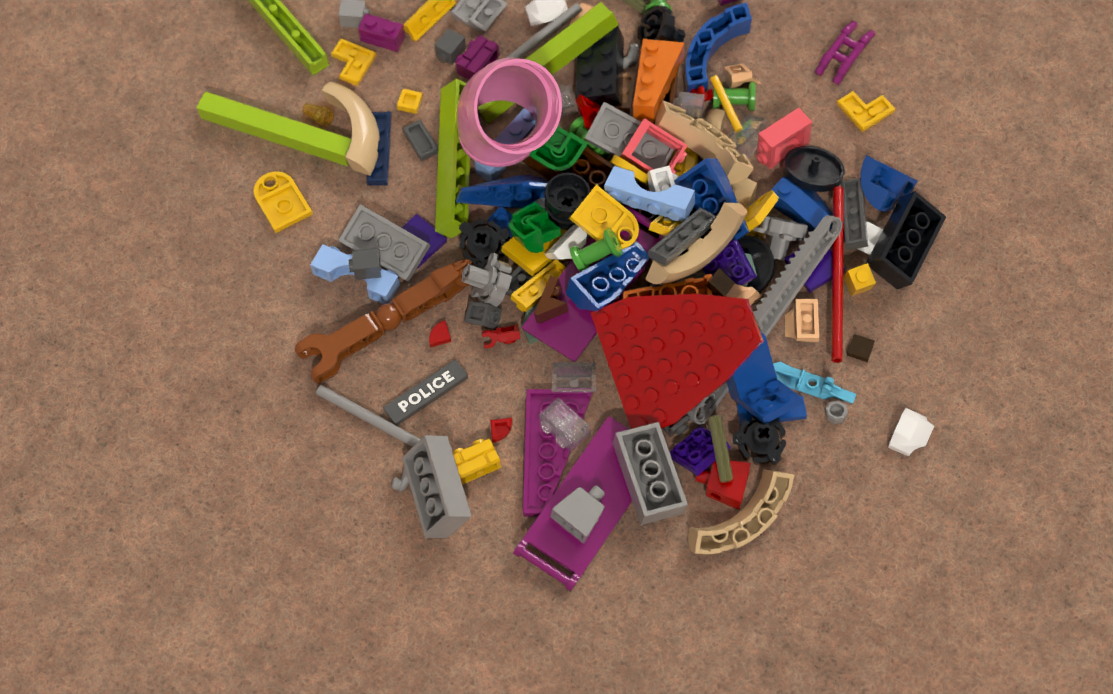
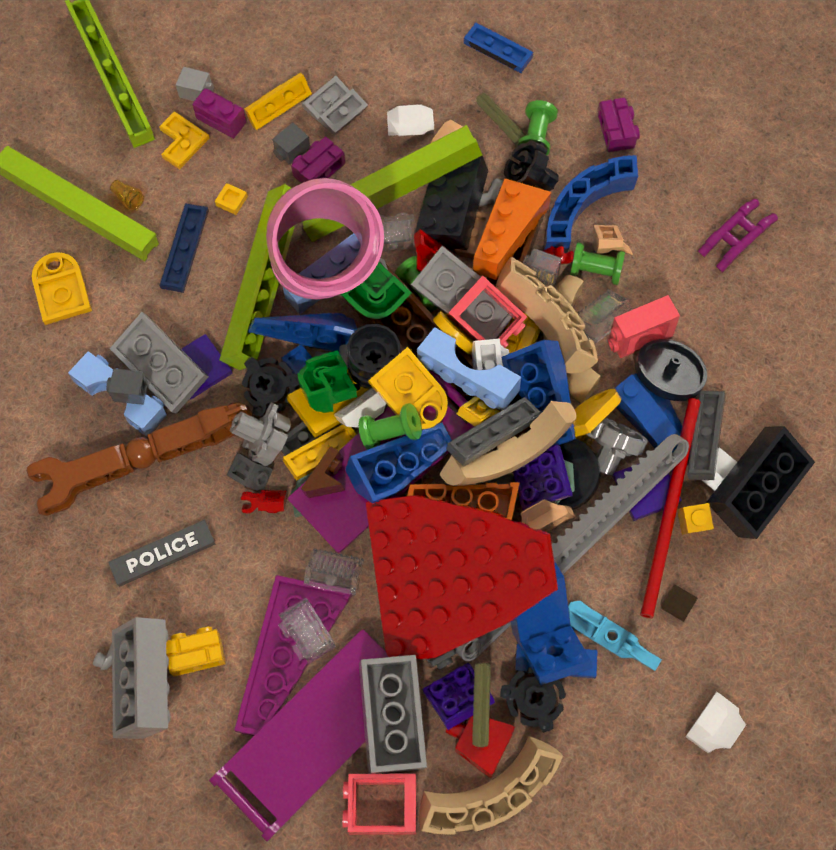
camera: 10 degrees right, 5 degrees up
(365, 132) = (170, 221): tan brick -> none
(367, 416) = (91, 570): light grey piece -> none
(420, 140) = (232, 246): dark grey tile -> none
(439, 334) = (195, 485): red tile -> none
(500, 428) = (236, 615): red tile -> none
(546, 32) = (392, 152): light grey piece -> none
(579, 512) = (299, 746): light grey torso -> none
(653, 525) = (350, 793): none -> coral window
(720, 283) = (526, 497): dark brown tile -> none
(726, 104) = (585, 273): yellow bar -> none
(803, 321) = (617, 556): light nougat slope -> none
(836, 412) = (632, 679): light grey tile -> none
(865, 115) = (746, 314): yellow tile -> none
(884, 184) = (749, 405): blue brick -> none

